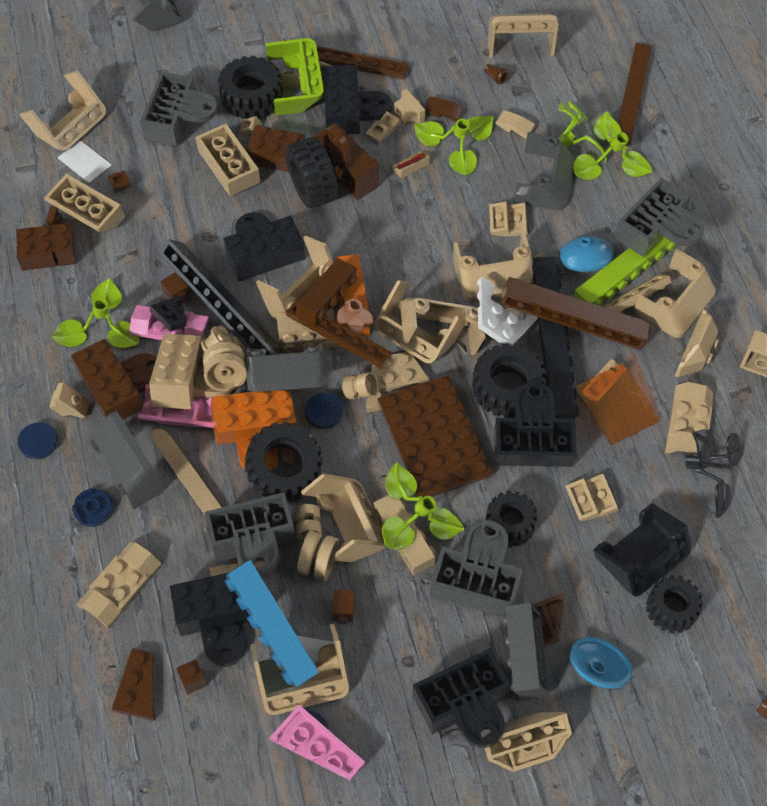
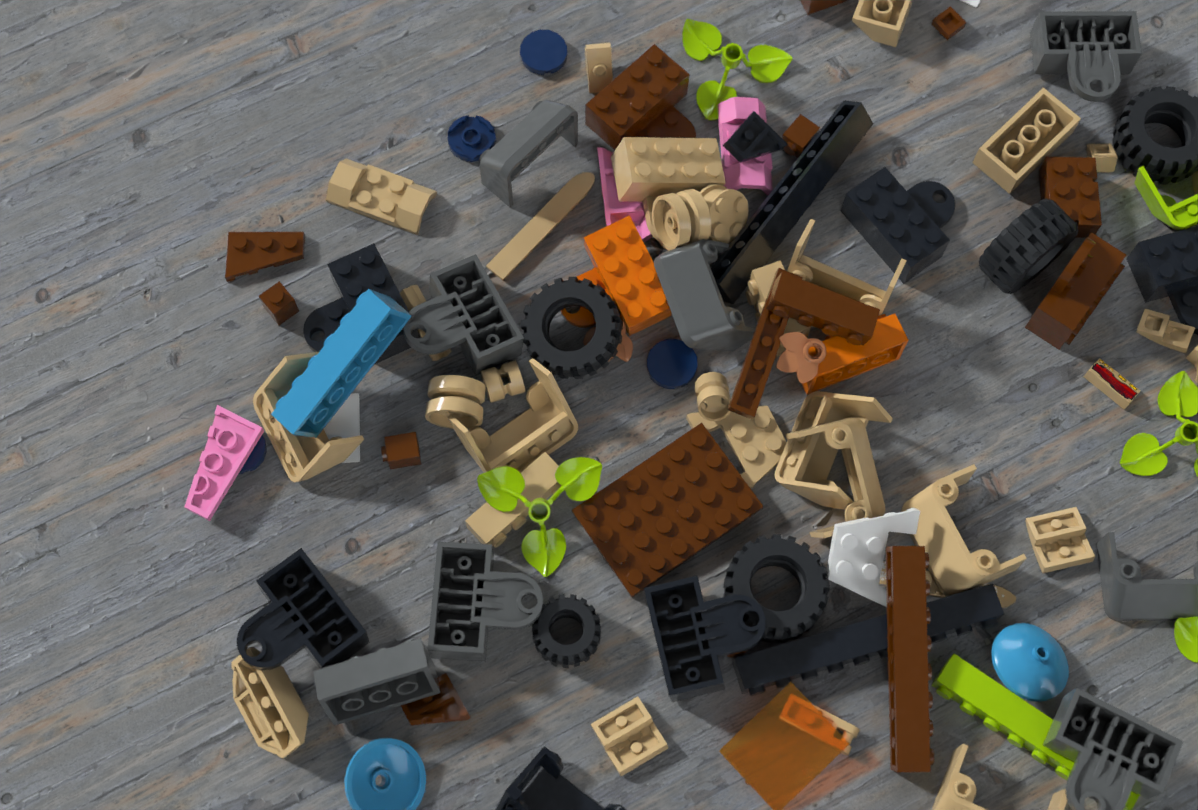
camera: 75 degrees right, 10 degrees up
(645, 289) = (981, 748): tan plate -> none

